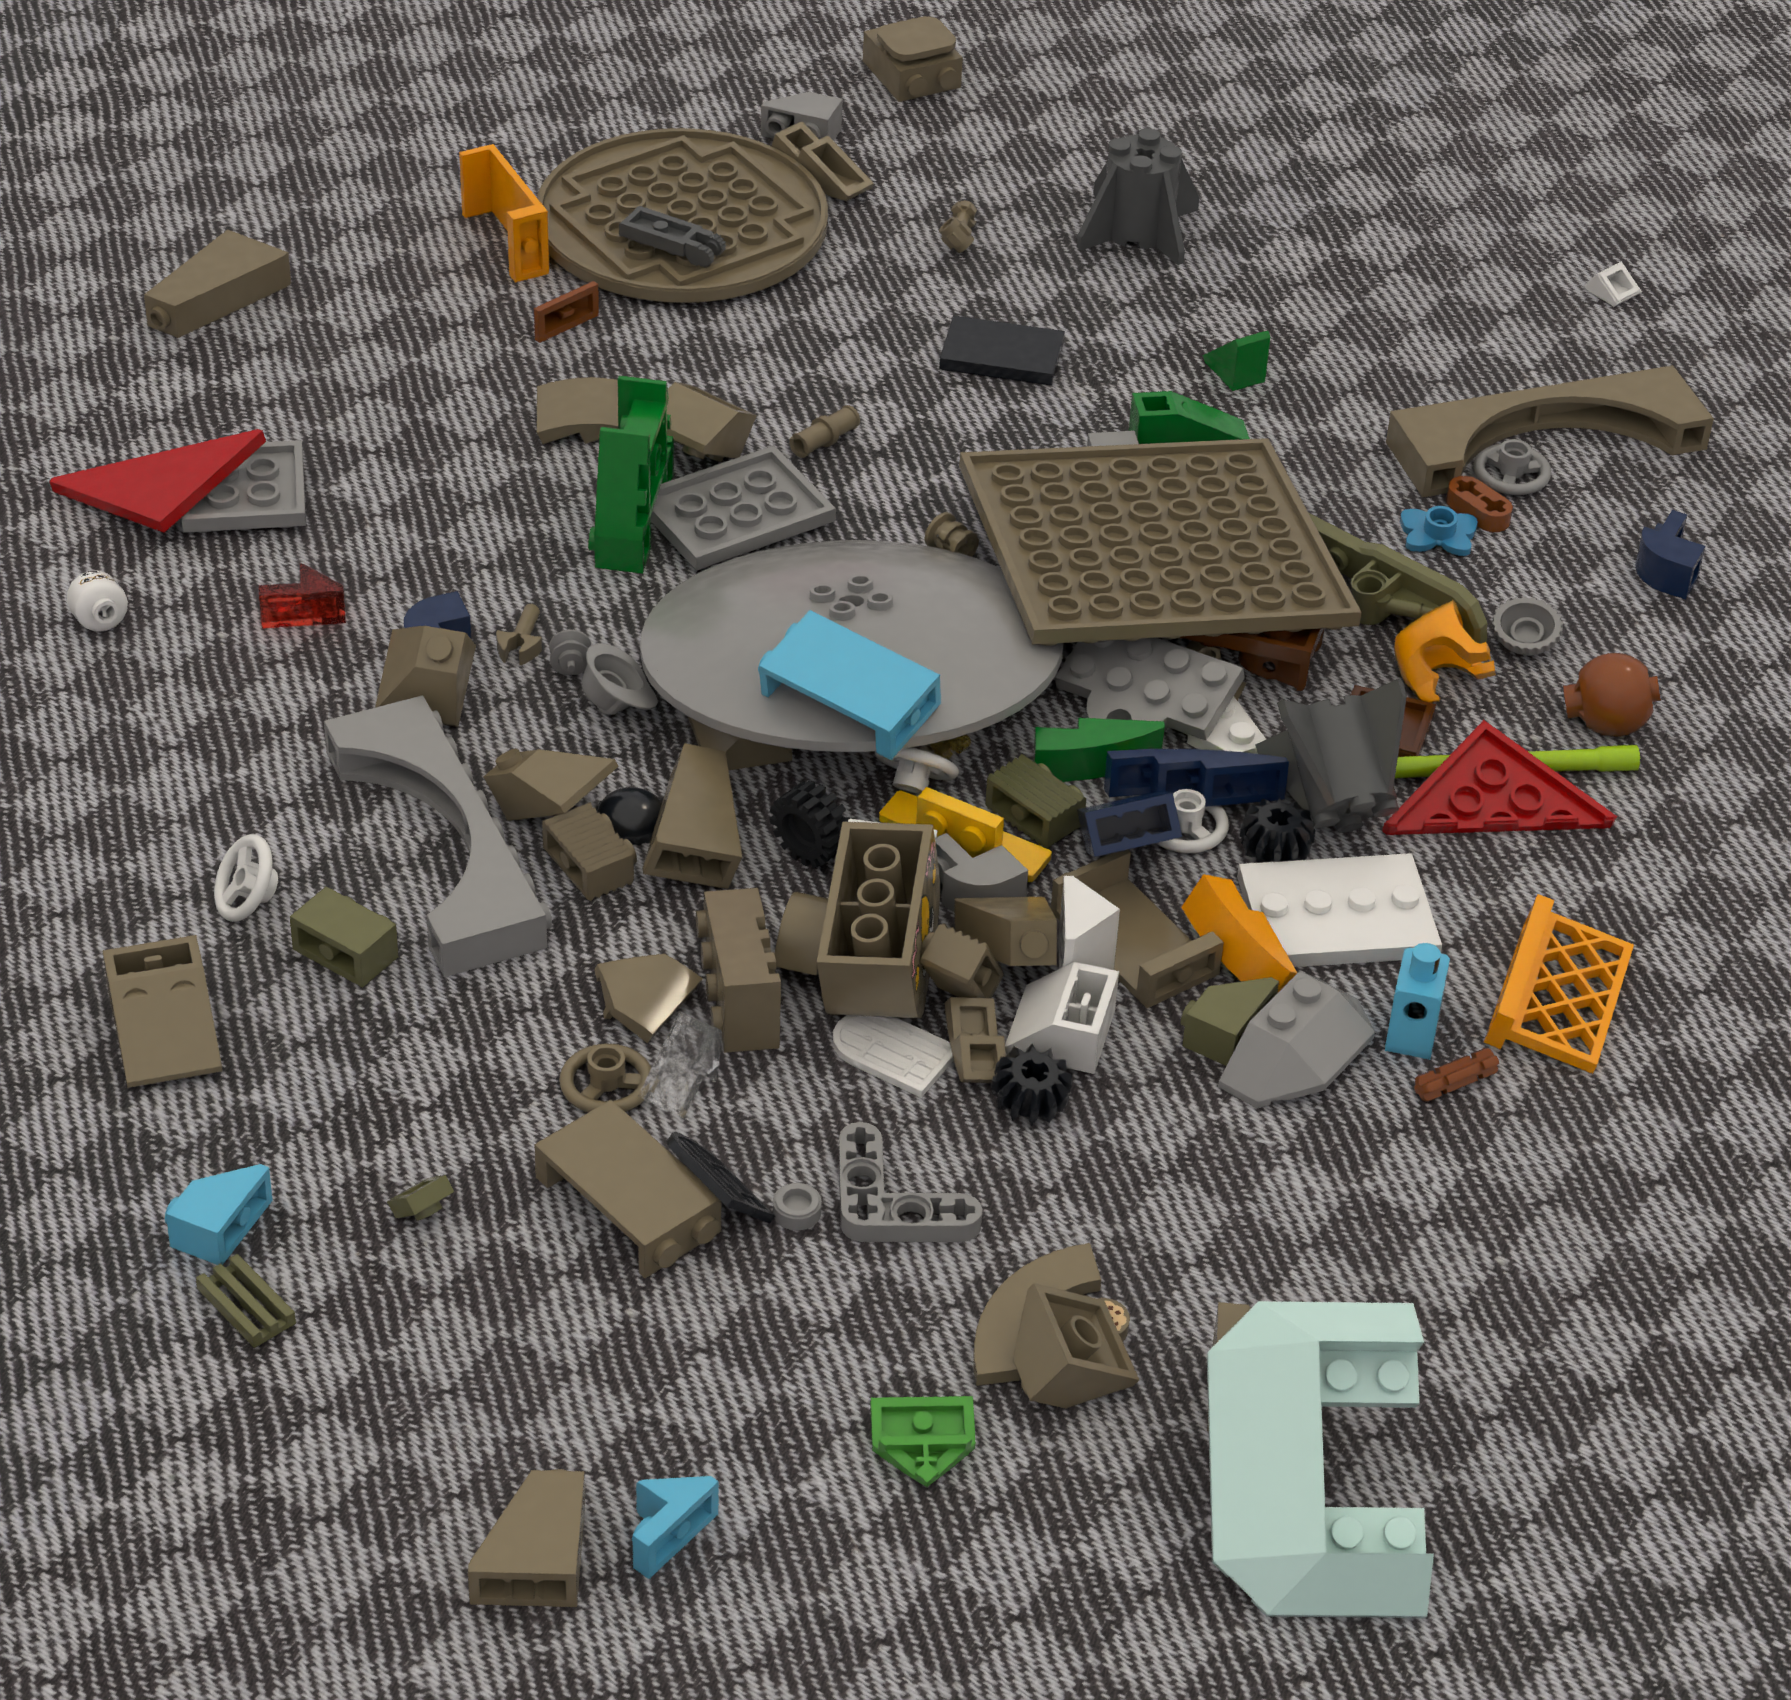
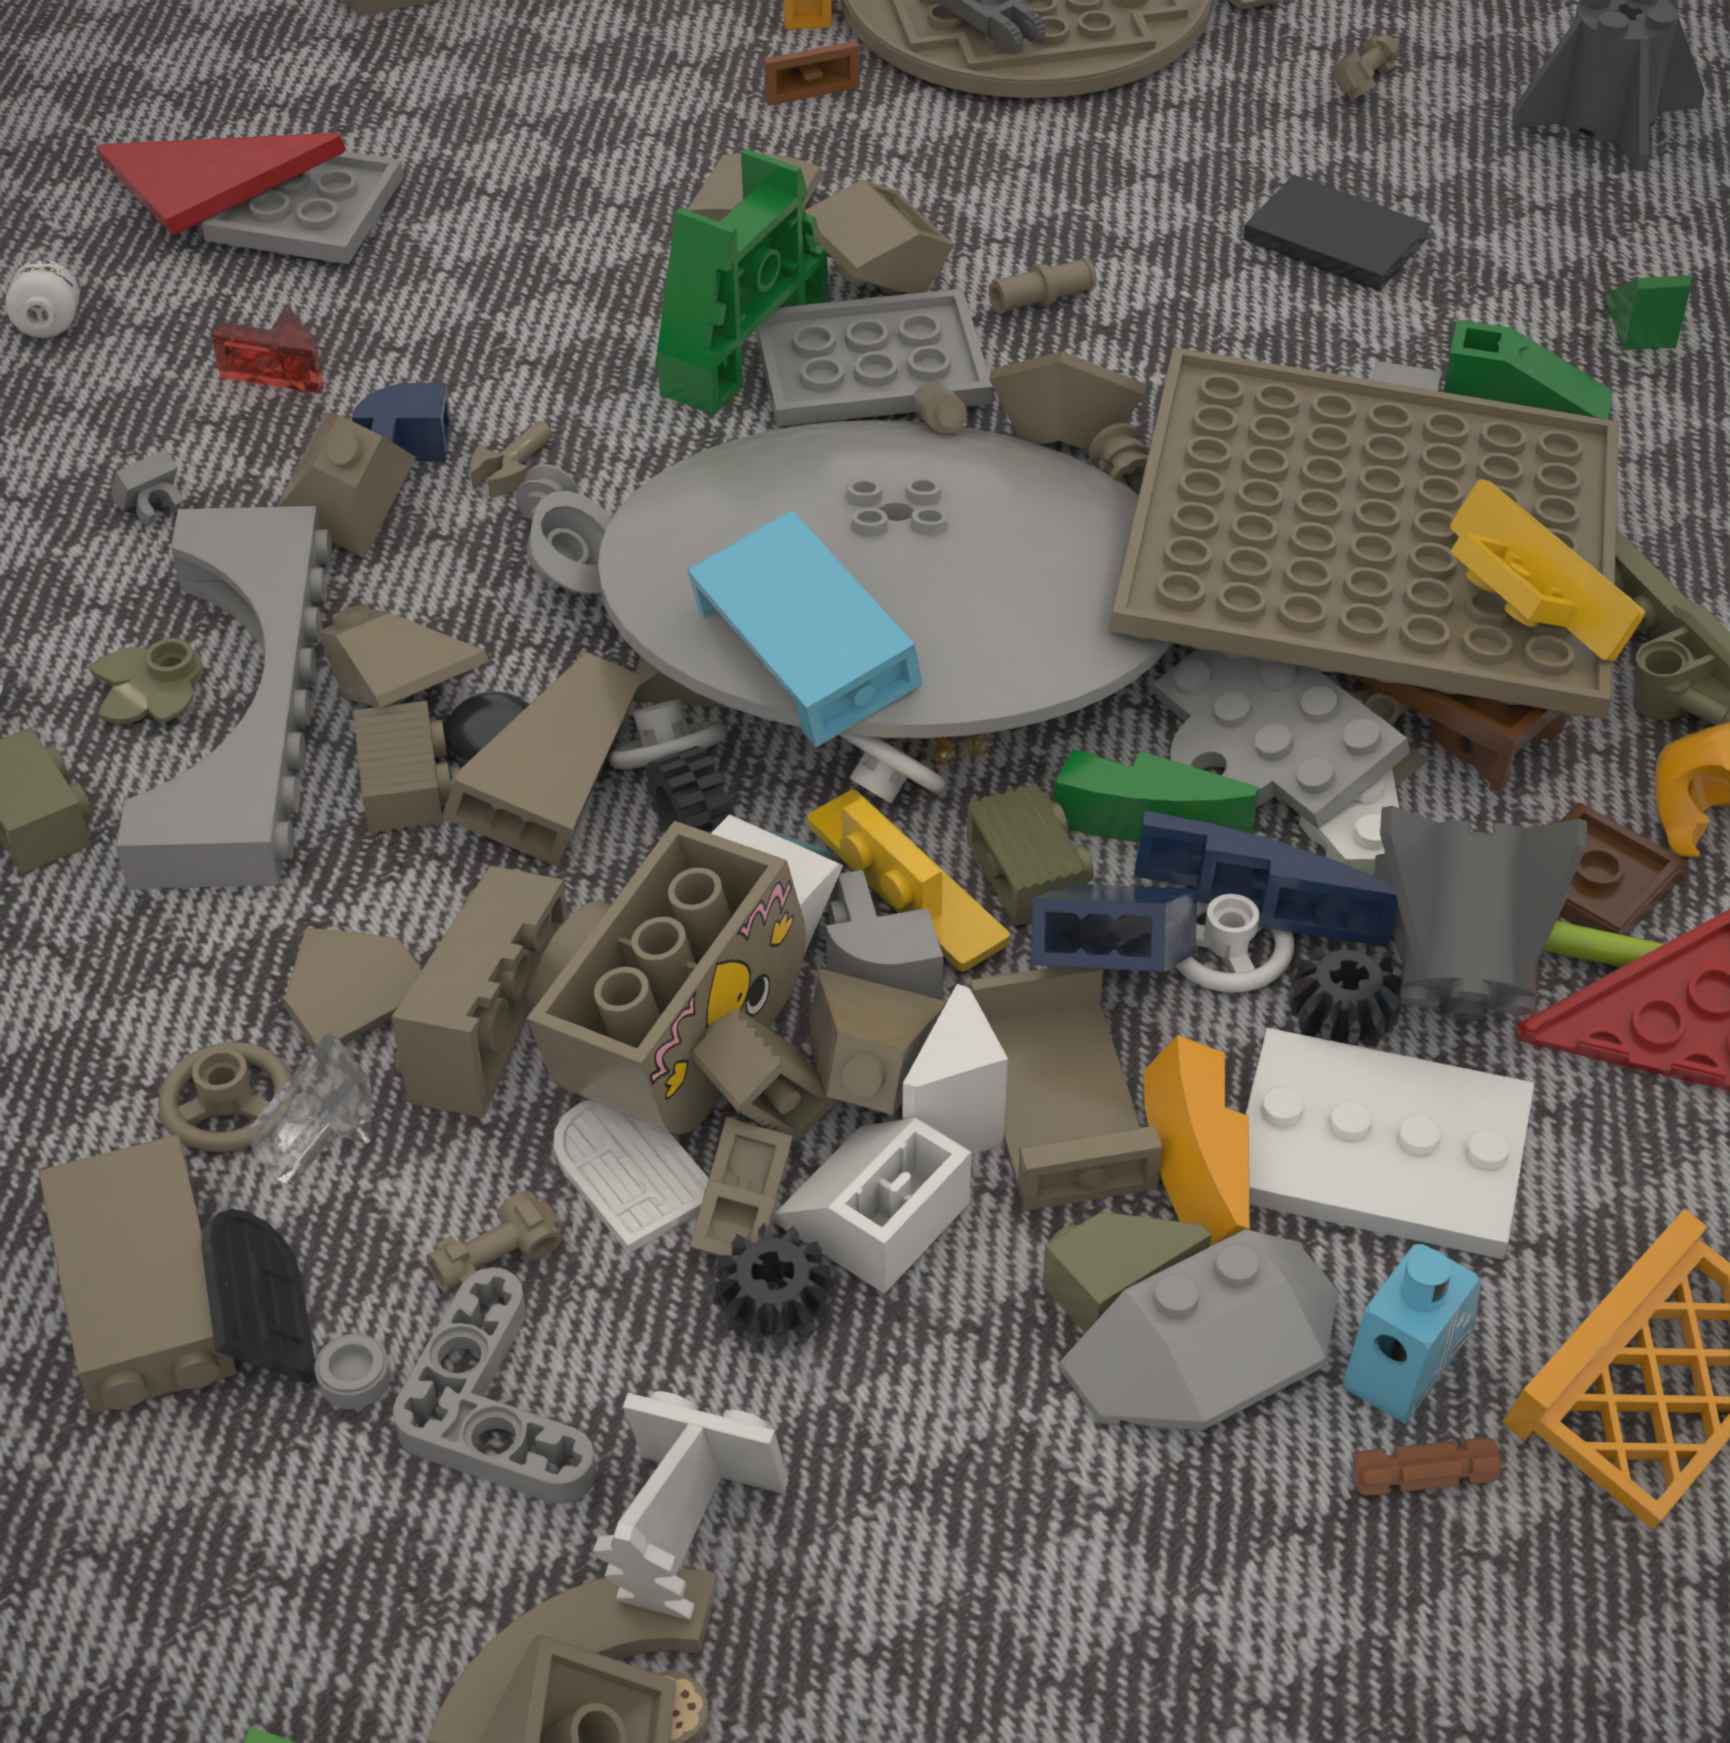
camera: 25 degrees right, 5 degrees up
(274, 712) = (145, 481): none -> light grey tile
(368, 842) = (148, 681): none -> olive plate
(763, 785) = (663, 733): none -> light grey piece
(813, 530) = (939, 407): none -> dark tan cylinder
(852, 1096) = (524, 1226): none -> dark tan bar
(896, 505) = (1064, 398): none -> dark tan slope
(1065, 1179) = (665, 1514): none -> white piece
(1283, 542) = (1539, 573): none -> yellow bracket

